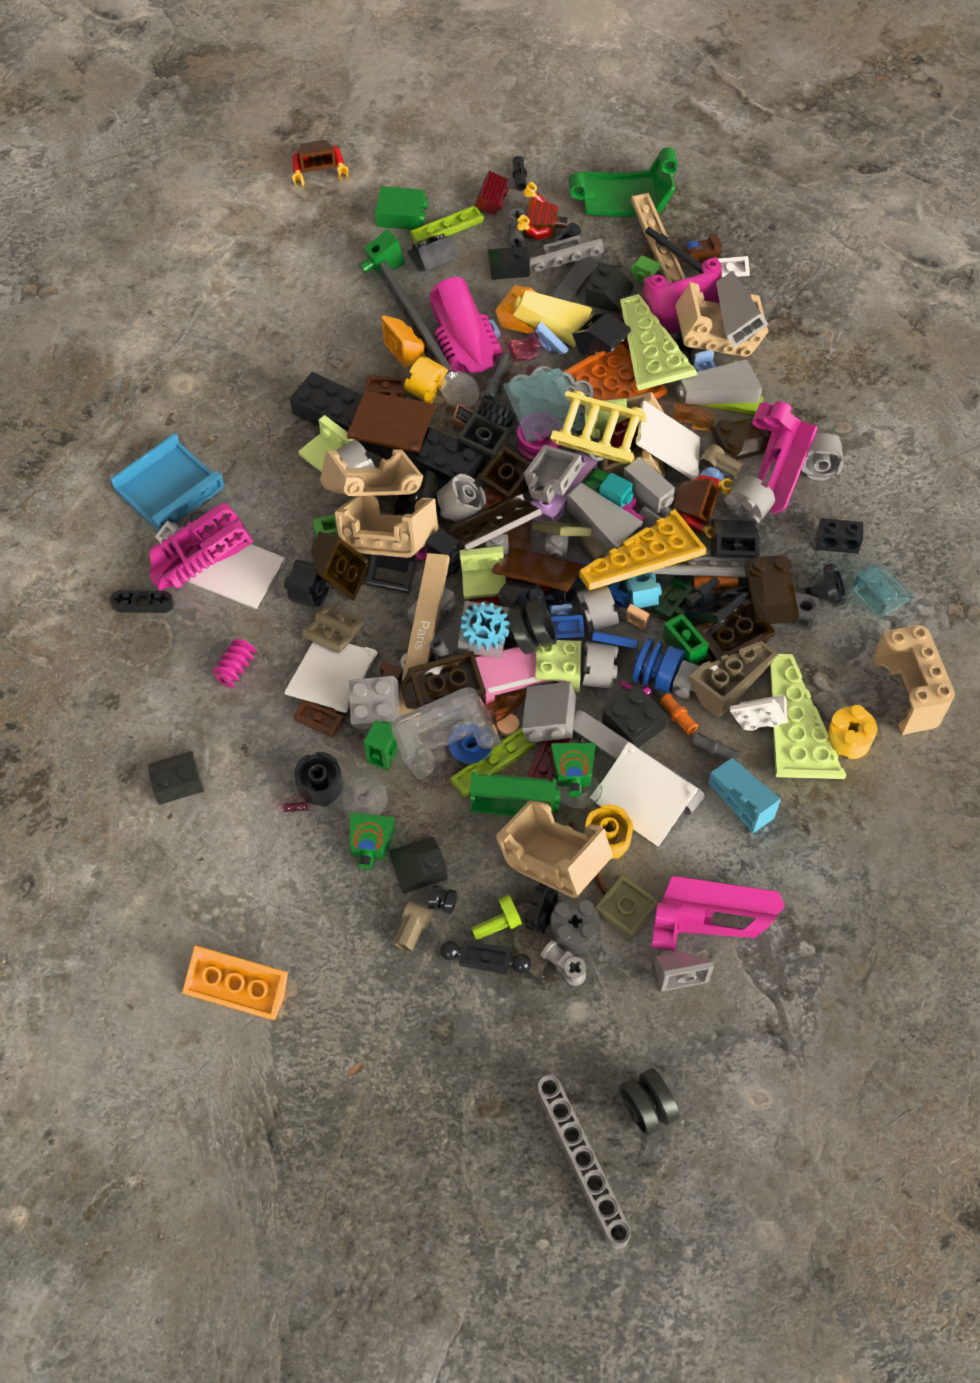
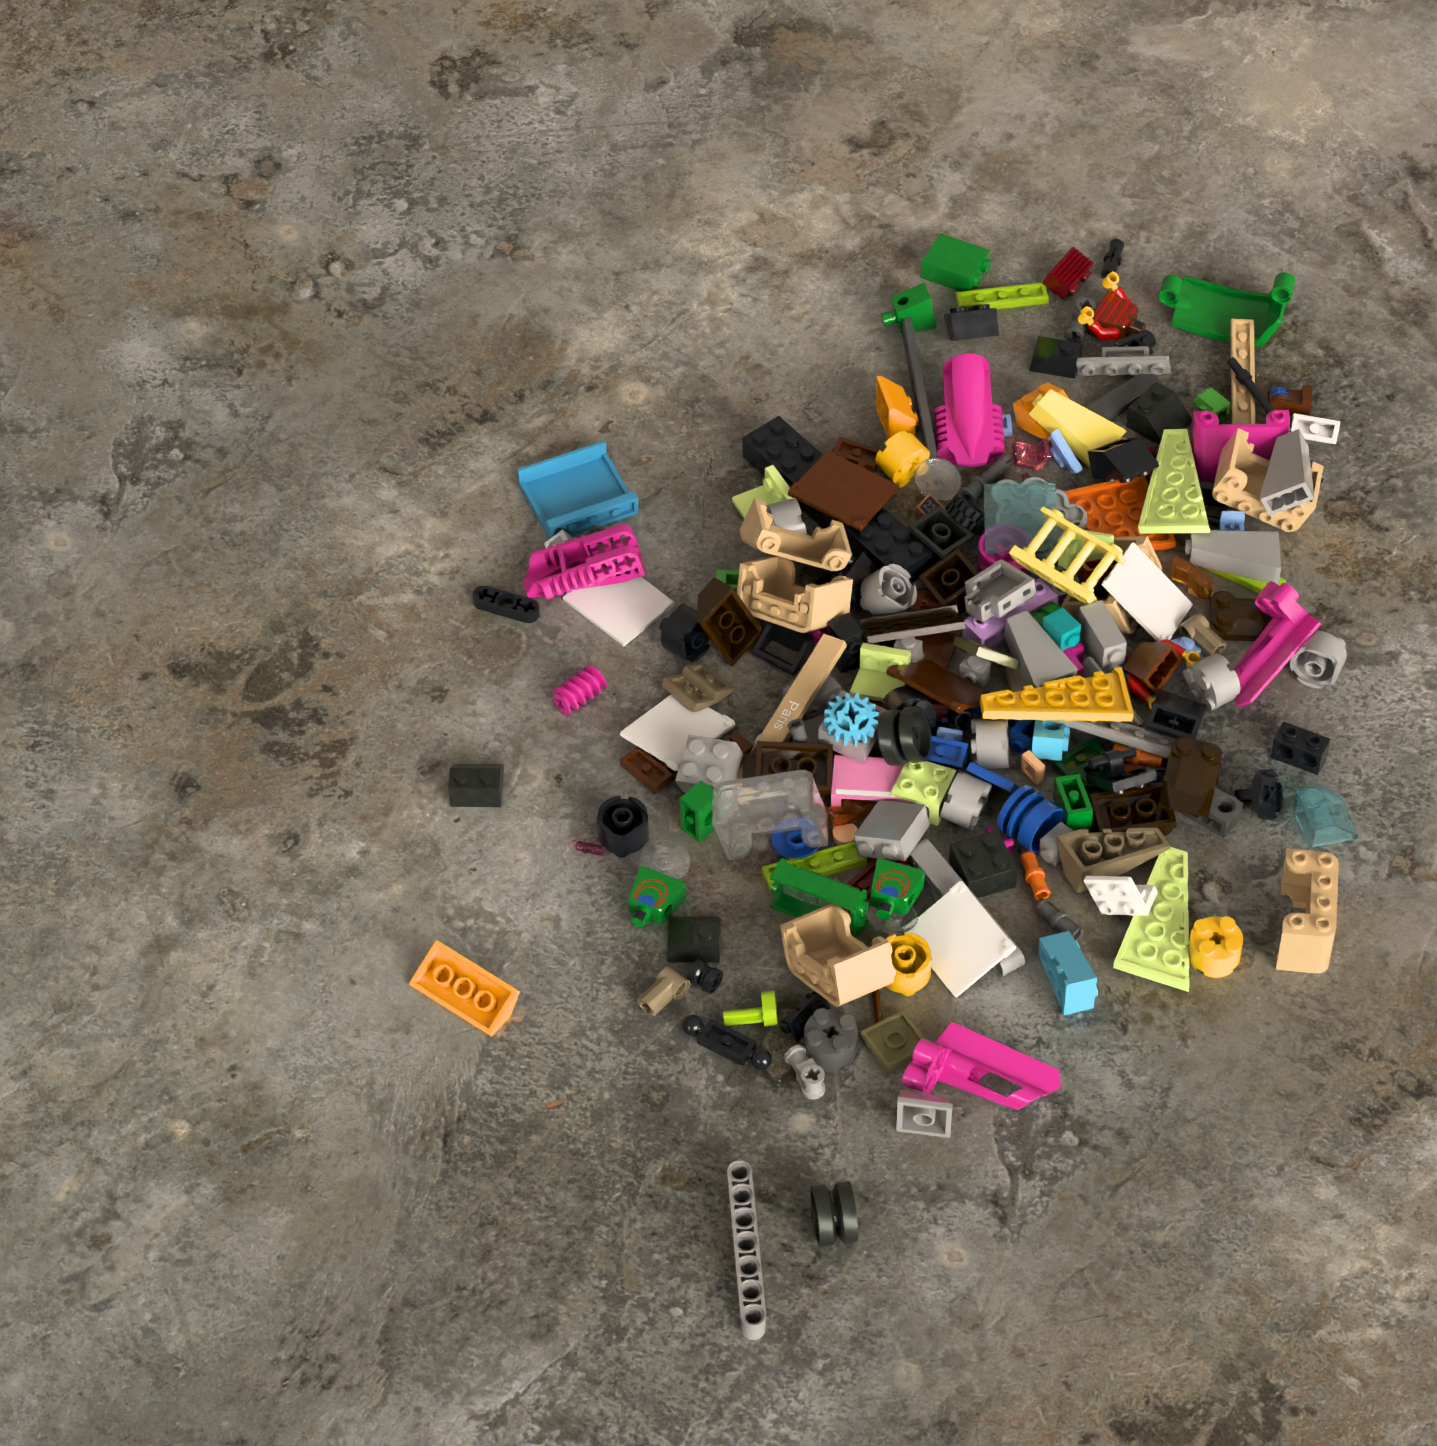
camera: 20 degrees right, 10 degrees down
(317, 156) = (880, 181): reddish brown torso -> none

